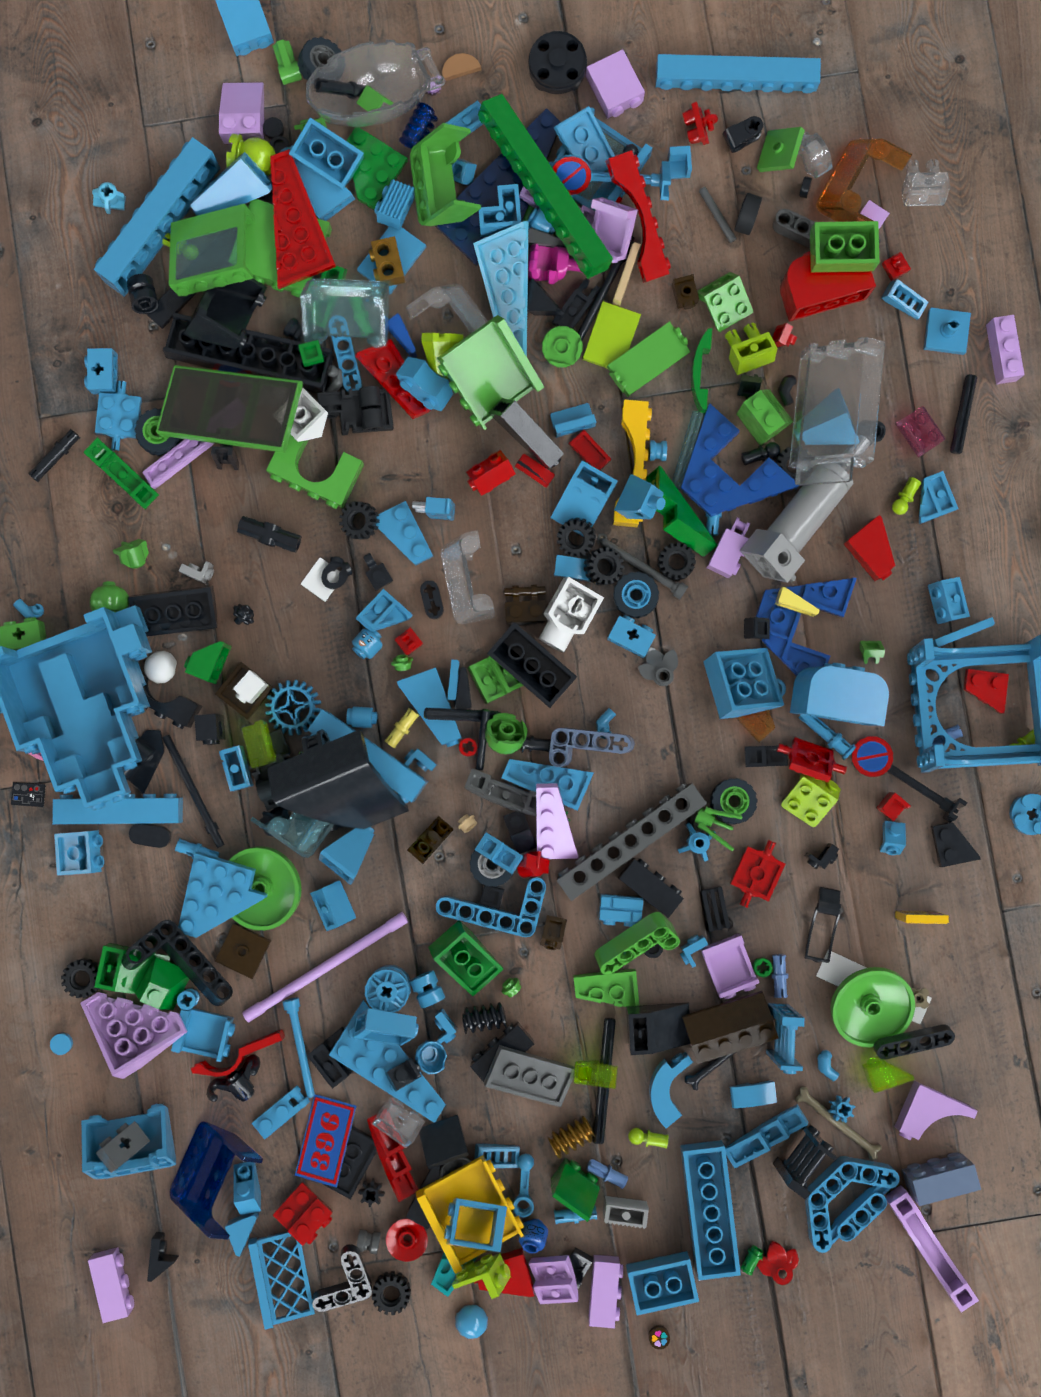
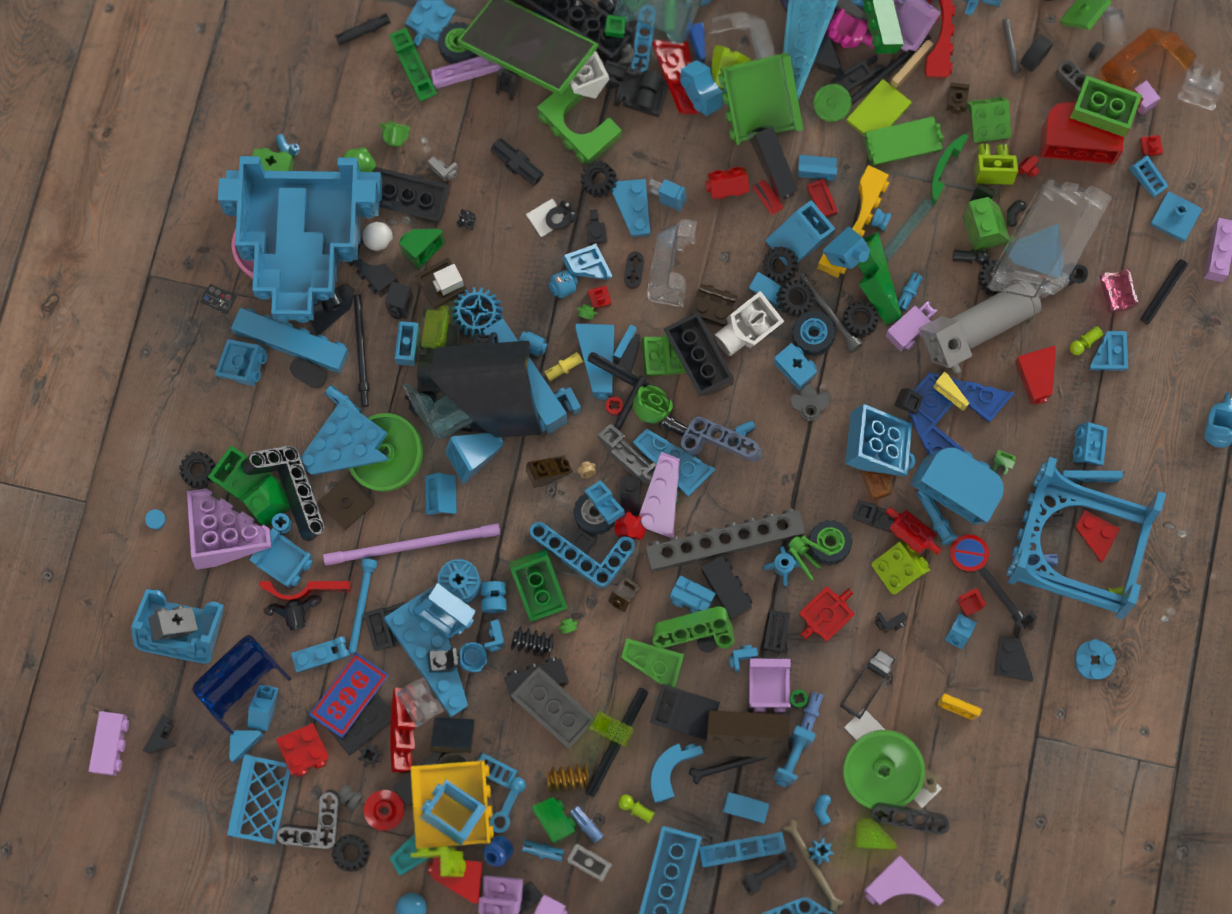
camera: 25 degrees right, 10 degrees down
(712, 487) = (917, 268): blue wing -> none

